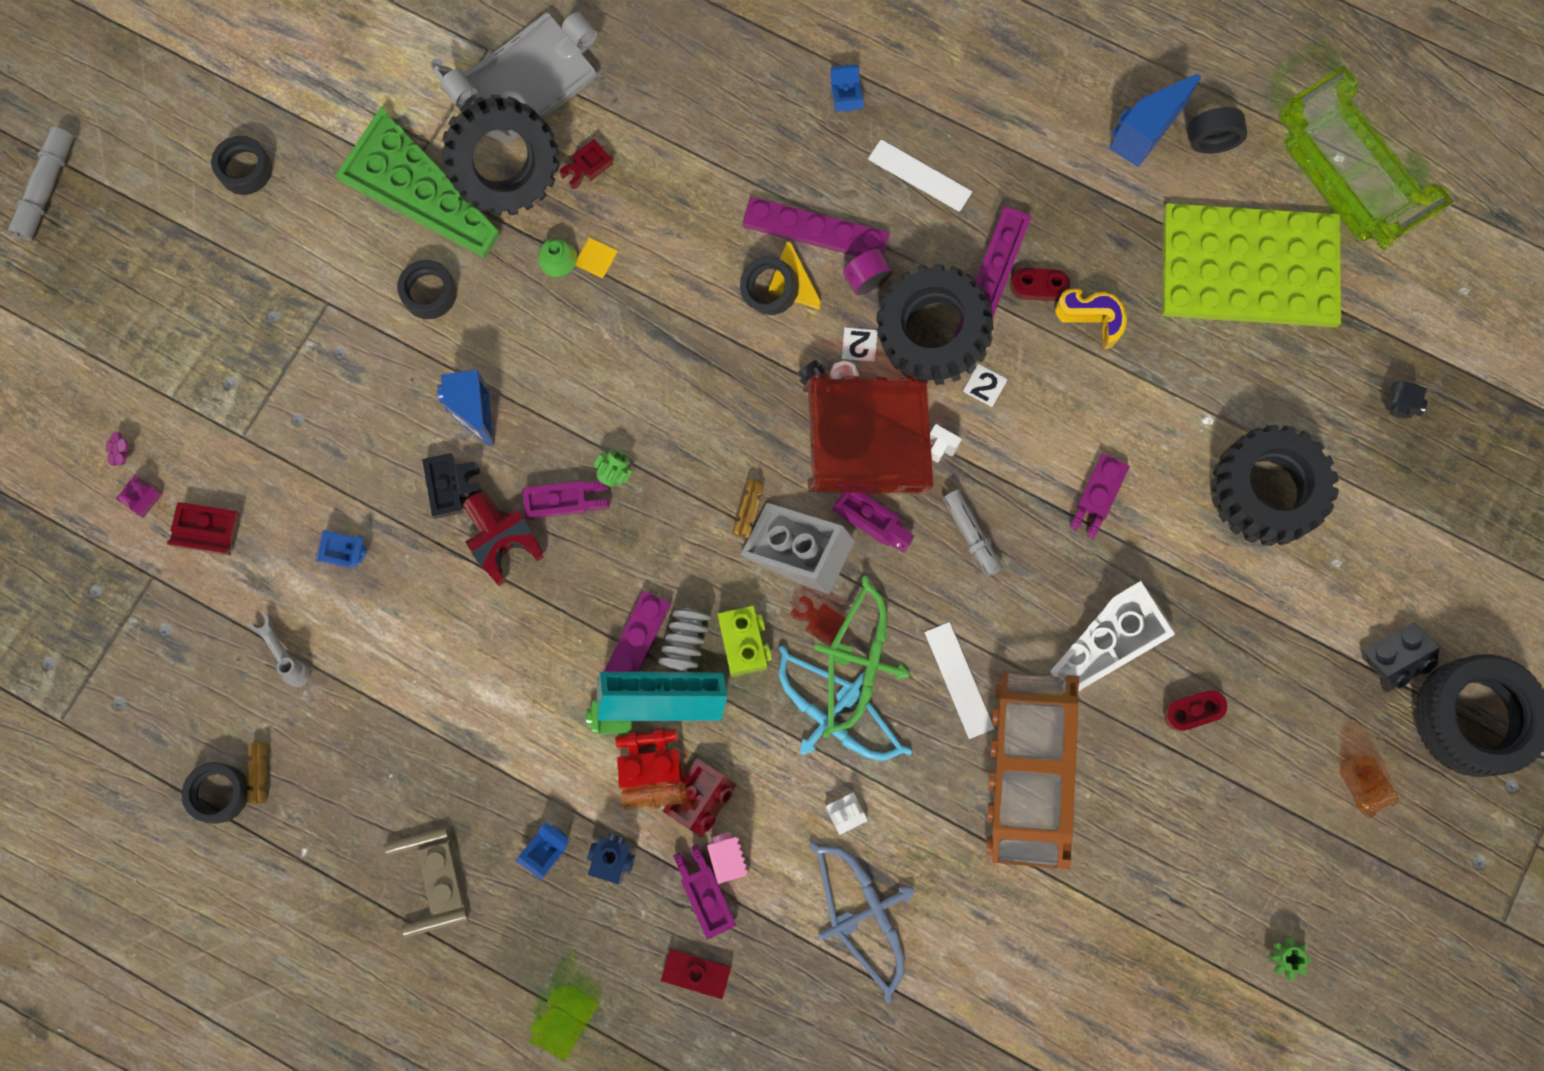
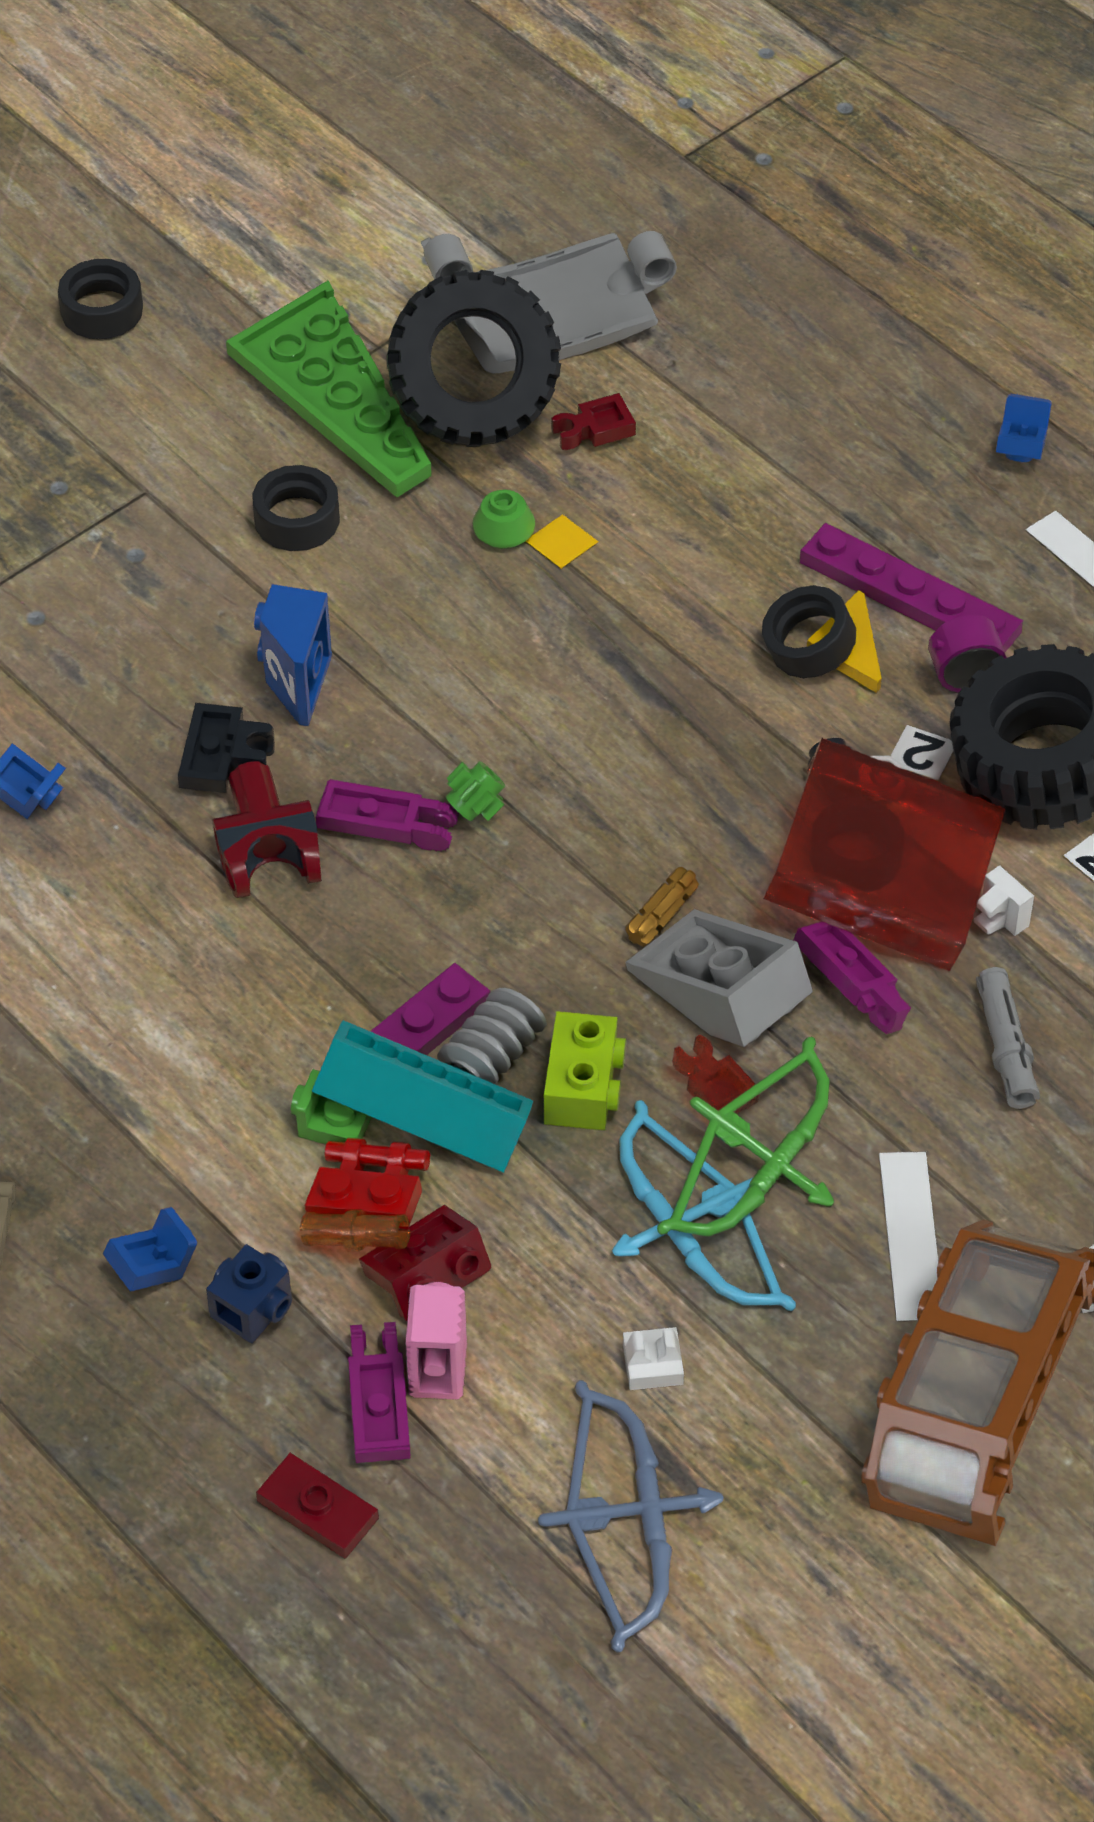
camera: 20 degrees right, 25 degrees down
(564, 1021) = (76, 1498): clear neon green bracket -> none

